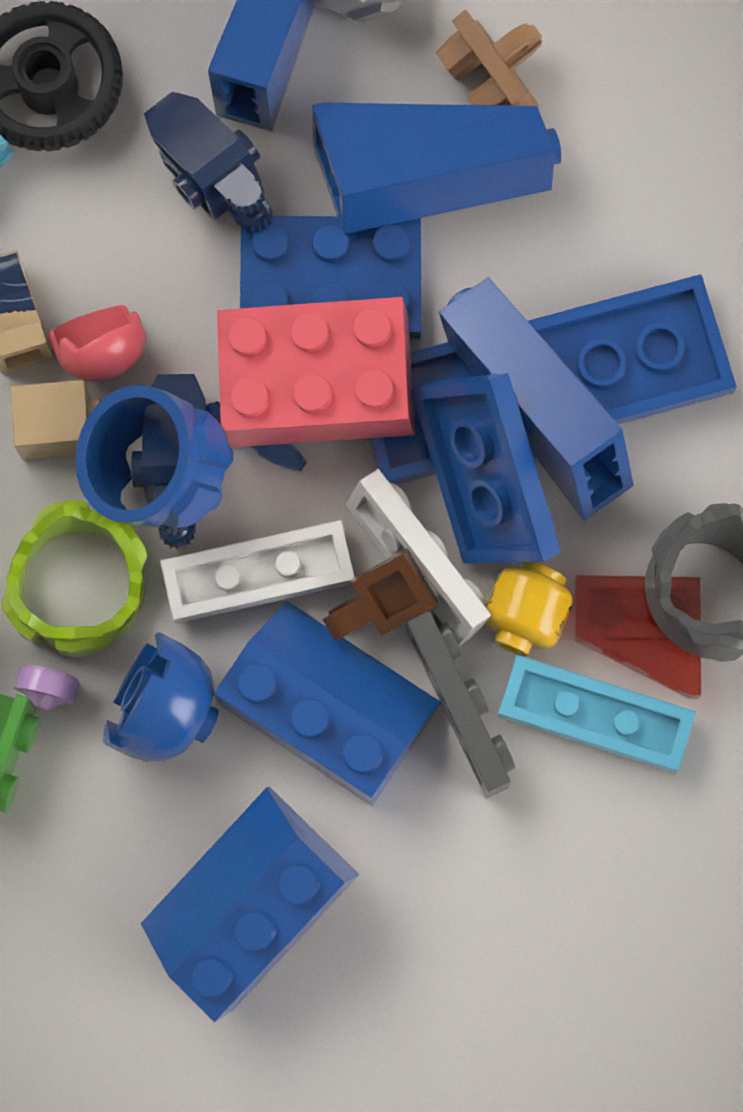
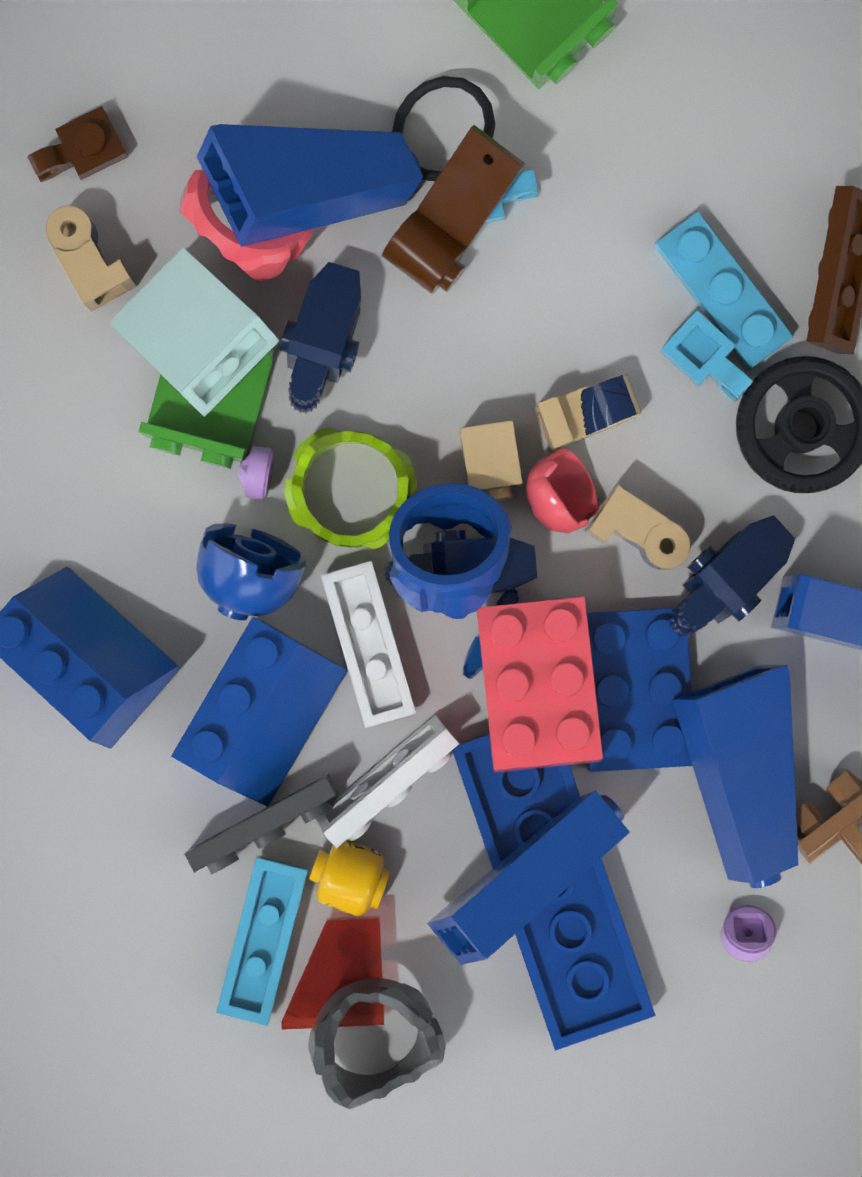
camera: 80 degrees right, 10 degrees up
(146, 257) = (653, 534): none -> tan leg
(386, 595) = (350, 755): reddish brown plate -> none
(486, 469) = (458, 838): blue plate -> none
(613, 171) = (748, 933): none -> lavender tile

